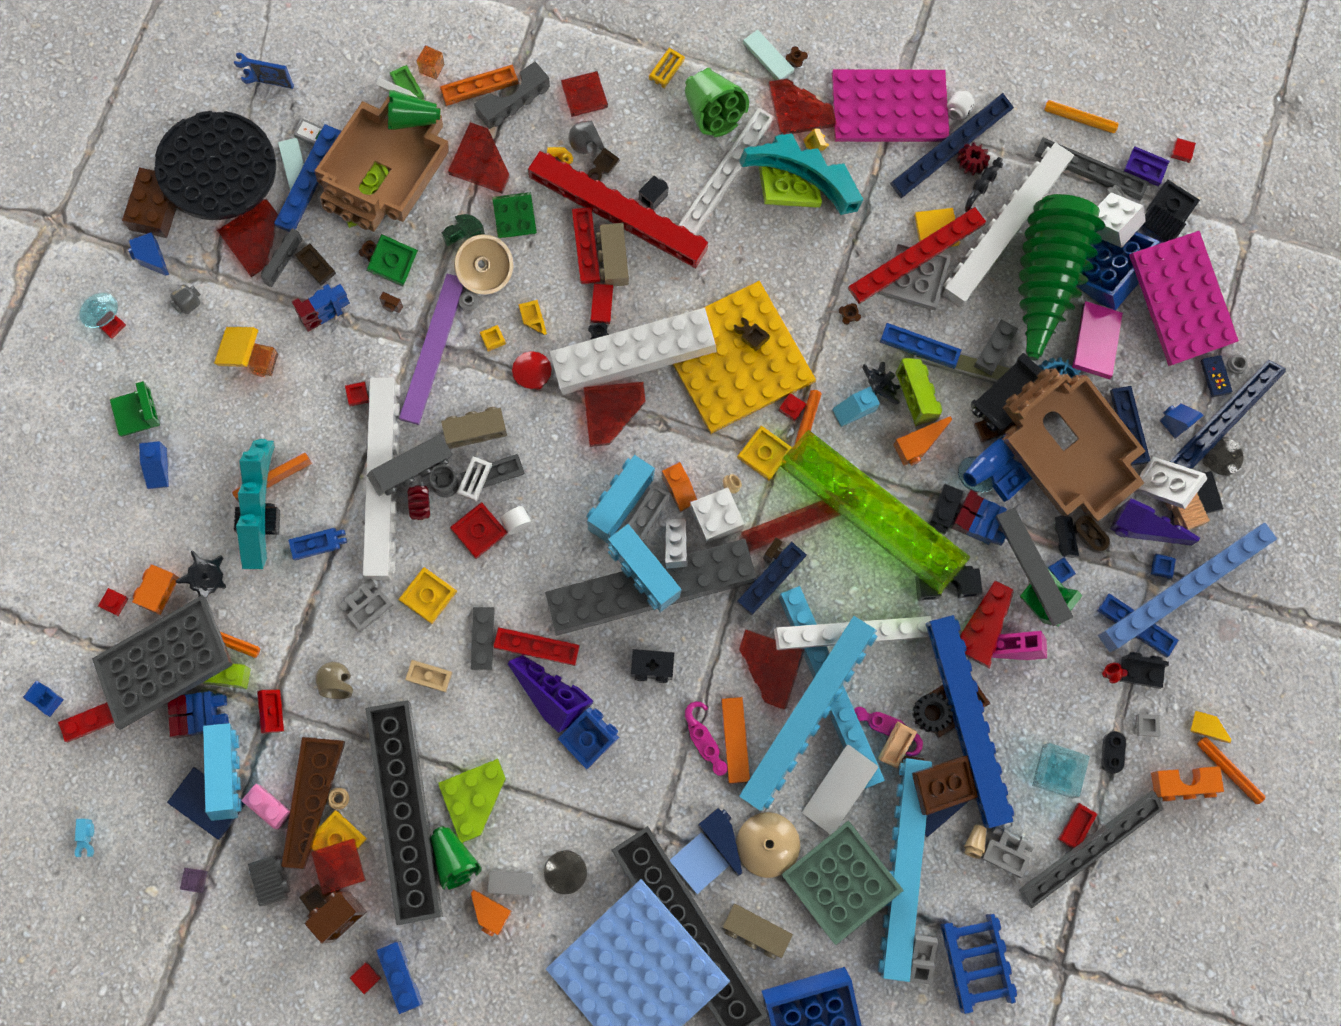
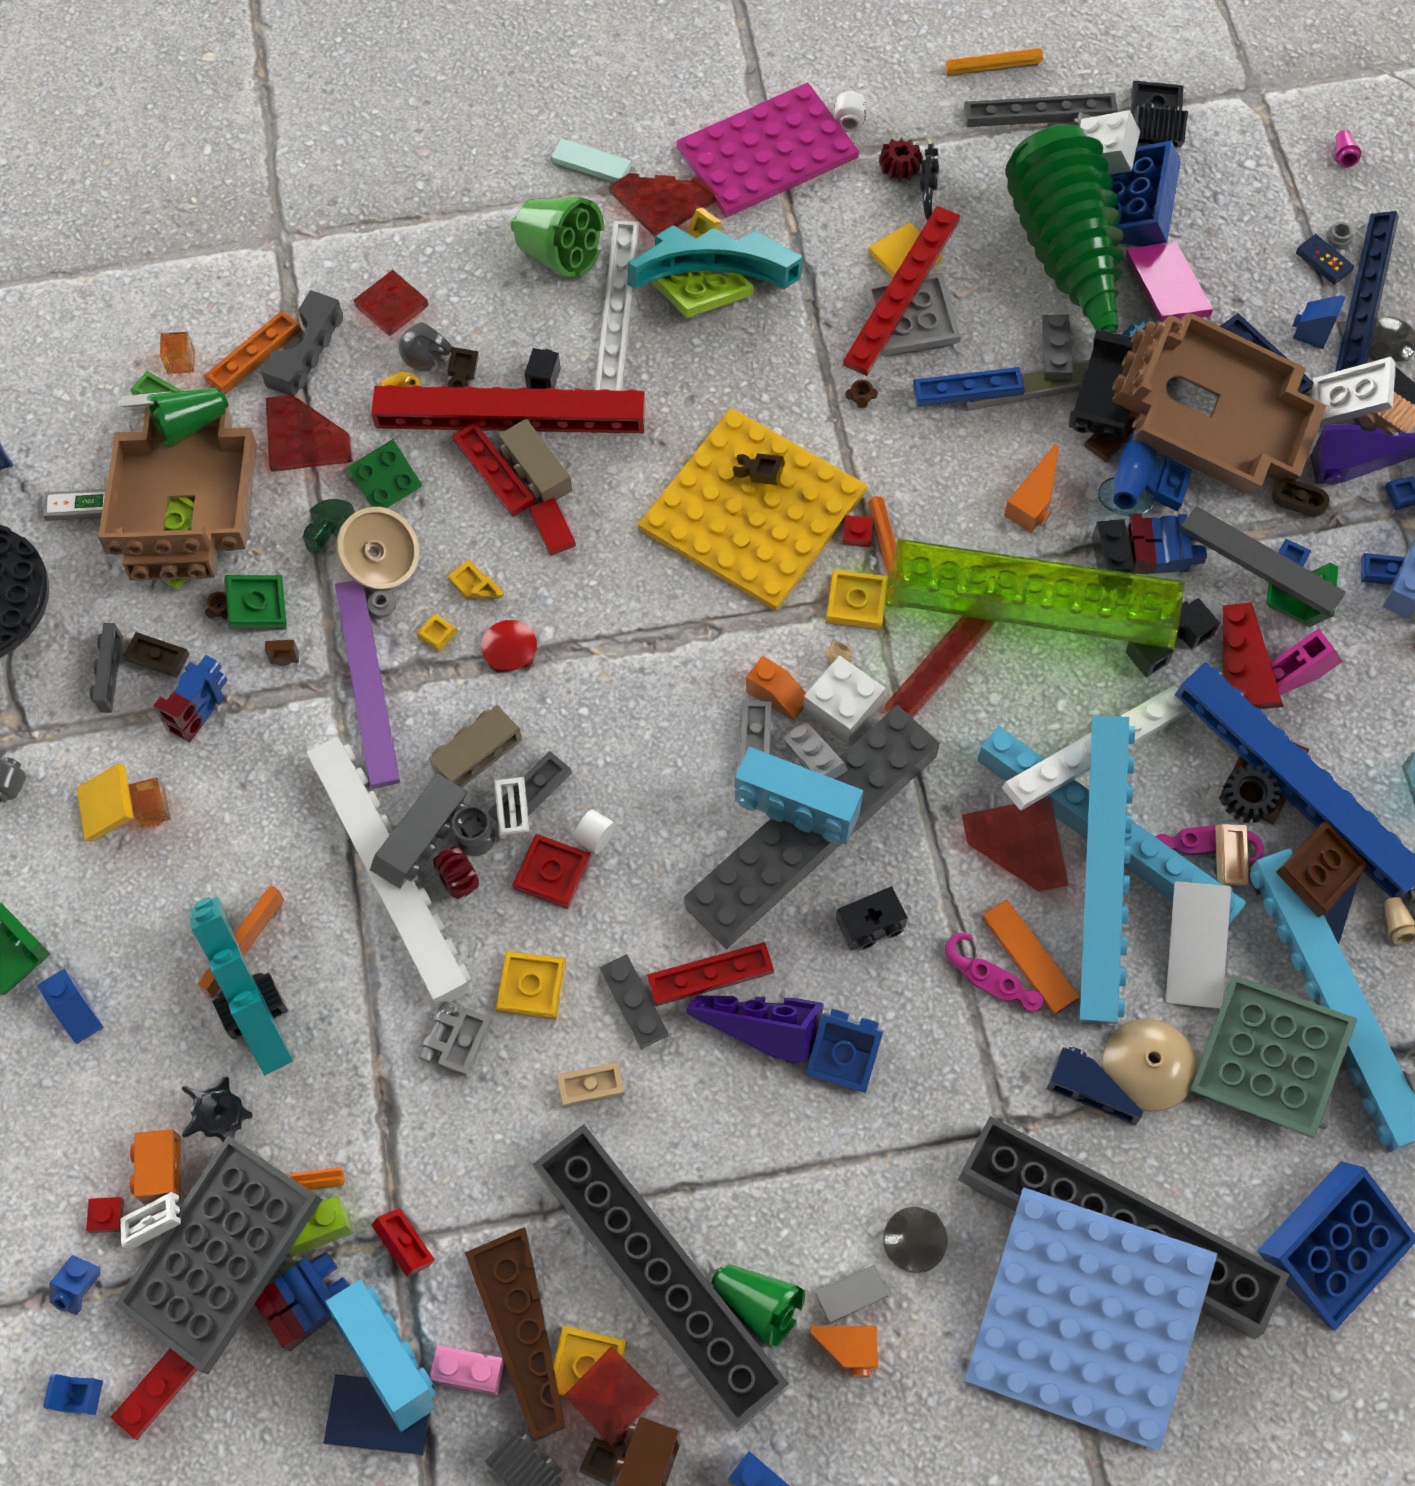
camera: 20 degrees left, 10 degrees down
(75, 633) = (72, 1284): none -> blue bracket
(134, 624) = (150, 1226): none -> white tile
(251, 236) = (52, 663): clear red plate -> none
(292, 159) = (65, 554): light aqua tile -> none
(306, 181) = (91, 561): blue plate -> none
(316, 543) = (347, 994): blue hinge -> none
(331, 678) = (464, 1148): dark tan helmet -> none
(332, 795) = (554, 1299): tan plate -> none
(357, 394) = (298, 783): red plate -> none
(472, 798) = (737, 1210): lime plate -> none
(598, 327) = (565, 554): black plate -> none
(611, 409) = (637, 642): clear red plate -> none
(621, 498) = (712, 737): medium azure piece -> none
(633, 351) = (626, 557): white brick -> none
(659, 79) = (473, 245): yellow tile -> none
(699, 863) = (1080, 1131): light blue tile -> none
(756, 932) = (1204, 1178): dark tan brick -> none
(771, 578) = (955, 739): dark blue plate -> none
(773, 551) = (940, 703): dark brown plate -> none
(796, 62) = (625, 147): reddish brown plate -> none
(856, 406) = (935, 490): medium azure slope -> none
(882, 382) = (949, 449): black piece -> none
(918, 391) = (997, 438): lime slope -> none
(951, 145) = (865, 159): dark blue tile -> none
(1008, 224) = (986, 210): white brick -> none
(1066, 535) = (1267, 507): black plate -> none
(1146, 166) = (1101, 77): dark purple plate -> none
(1183, 150) = (1130, 44): red tile -> none
(1183, 298) = (1236, 190): dark pink plate -> none
(1282, 304) = (1347, 150): none -> dark pink cone

